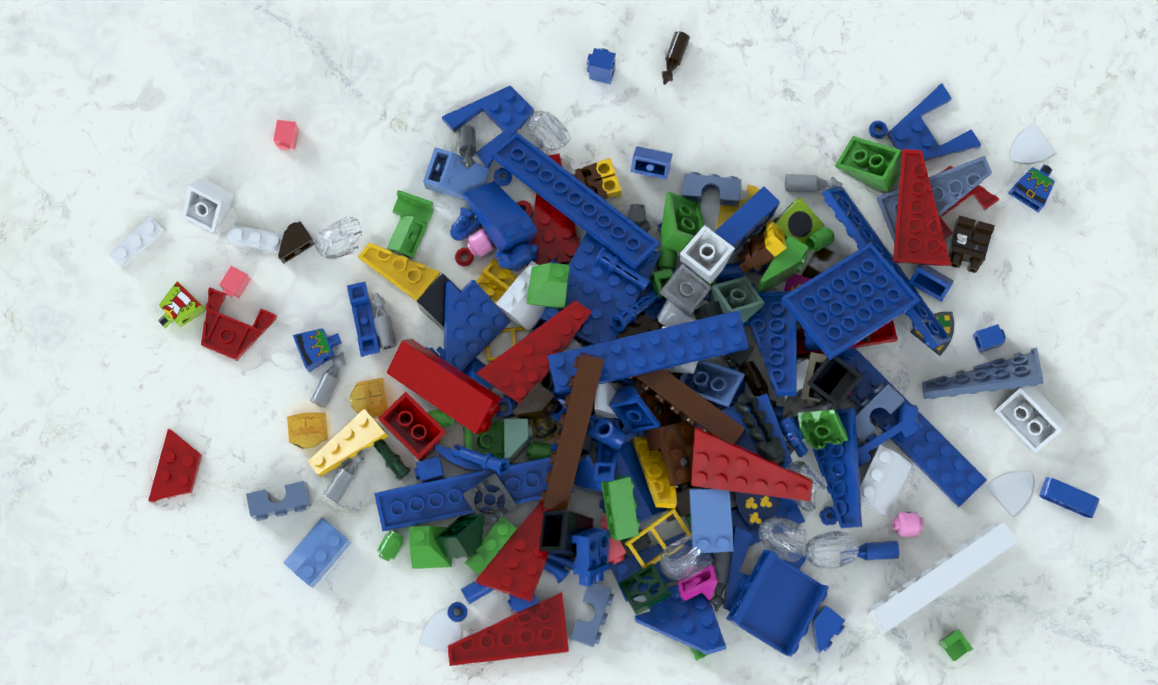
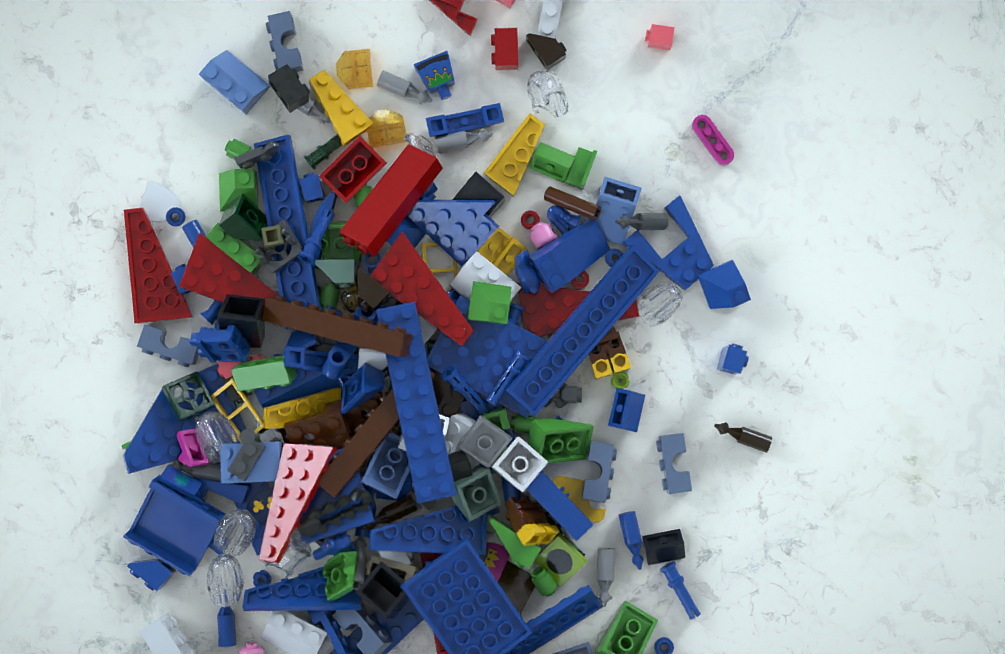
camera: 90 degrees right, 10 degrees up
(292, 281) = (506, 49): none -> red brick
(326, 490) = (289, 88): none -> pearl dark grey brick
(385, 361) = (421, 143): none -> clear tile
(393, 80) = (711, 131): none -> dark pink plate
(394, 515) = (259, 154): none -> dark grey hinge
(448, 214) = (572, 203): none -> reddish brown piece
(480, 502) = (272, 236): none -> olive slope
(531, 74) = (724, 286): none -> blue slope
(622, 166) = (625, 382): none -> lime plate
(686, 124) = (669, 447): none -> sand blue arch
(704, 520) = (247, 455): none -> dark grey hinge
(732, 594) = (180, 481): none -> blue tile
(772, 158) = (632, 536): none -> blue wheel
(782, 129) = (664, 546): none -> black panel
(816, 118) = (676, 582): none -> blue pin

